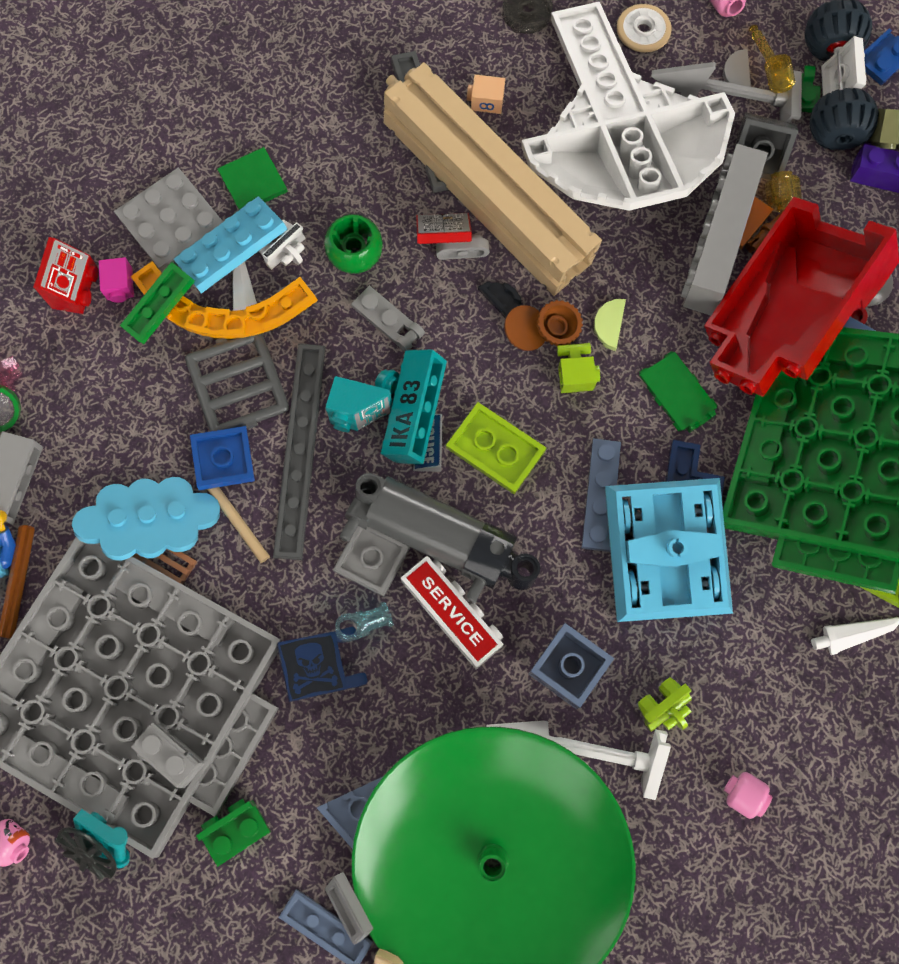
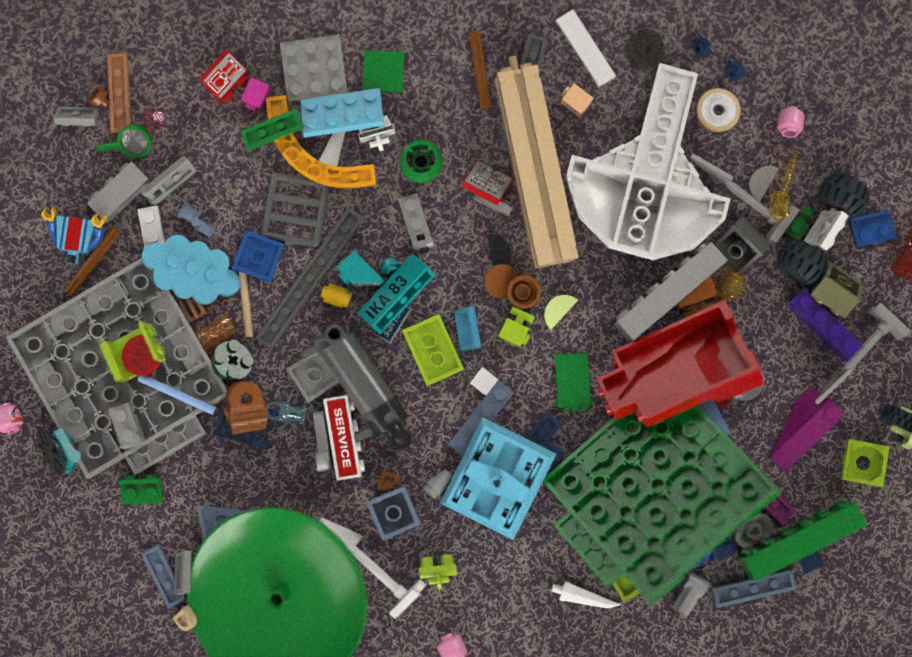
camera: 30 degrees right, 10 degrees up
(62, 431) = (168, 181): none -> light grey plate
(67, 494) = (151, 225): none -> white plate
(121, 456) = (195, 217): none -> sand blue connector
(127, 656) = (113, 351): none -> lime panel
(139, 653) = (138, 357): none -> red piece
(211, 677) = (177, 394): none -> light blue bar
(220, 575) = (216, 332): none -> clear orange hips
(264, 585) = (242, 359): none -> plate
(316, 652) = (245, 416): none -> dark orange piece
(343, 450) = (336, 295): none -> yellow brick
(360, 122) = (480, 71): none -> dark orange axle
(441, 643) = (323, 456): none -> light grey beam
(463, 42) = (585, 48): none -> white tile
(522, 398) = (467, 329): none -> dark azure tile
(537, 633) = (388, 481): none -> dark orange tile
(577, 450) = (484, 381): none -> white tile
(599, 603) = (437, 484): none -> light grey cone

